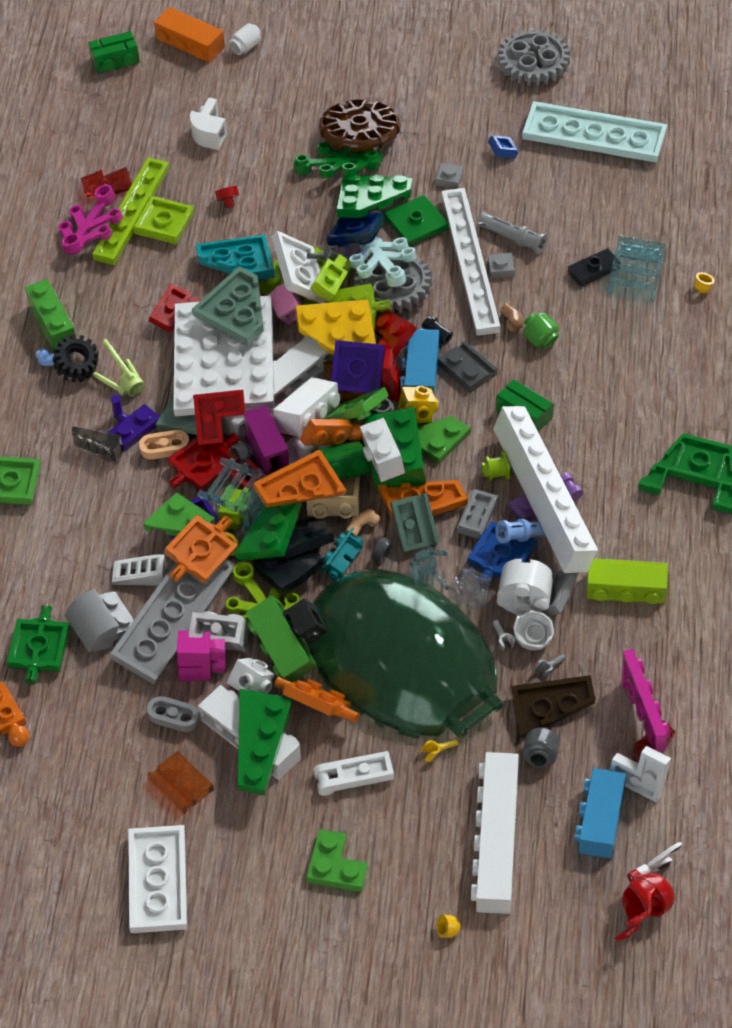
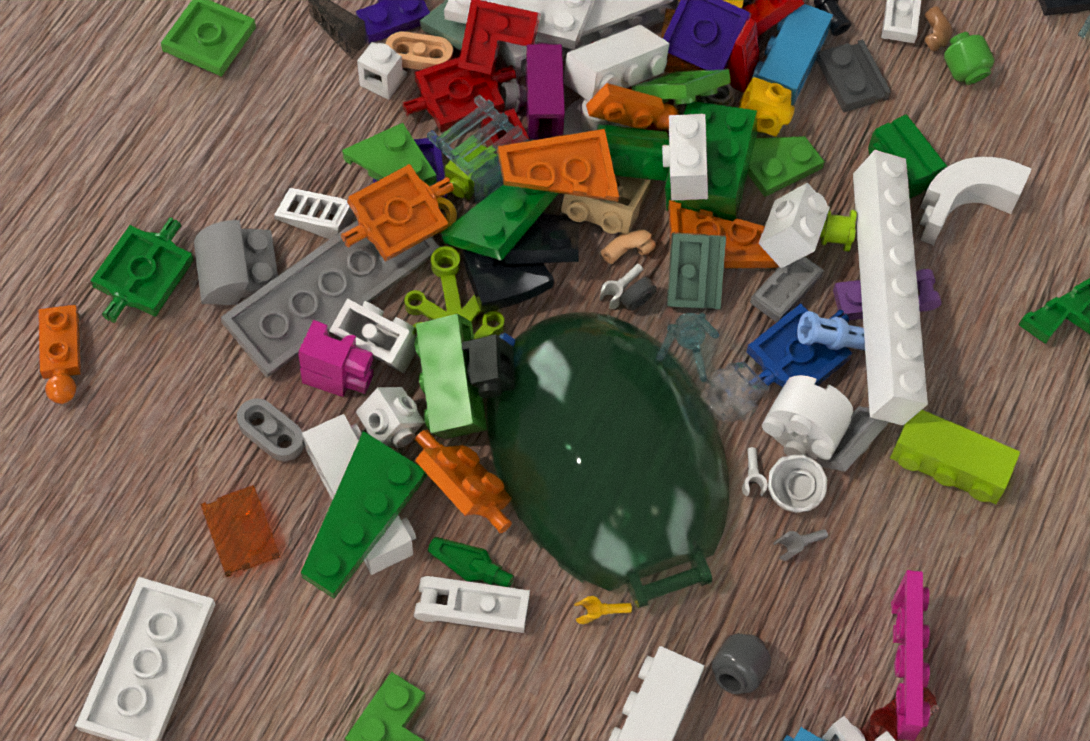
camera: 15 degrees right, 10 degrees up
(144, 457) = (384, 62): none -> white brick
(339, 749) = (469, 562): none -> green piece
(346, 546) = (571, 289): teal hinge -> none
(365, 552) = (616, 287): none -> white hand
(468, 472) = (794, 225): none -> white brick
(550, 701) = (780, 597): dark brown wing -> none
(573, 408) = (971, 180): none -> white arch

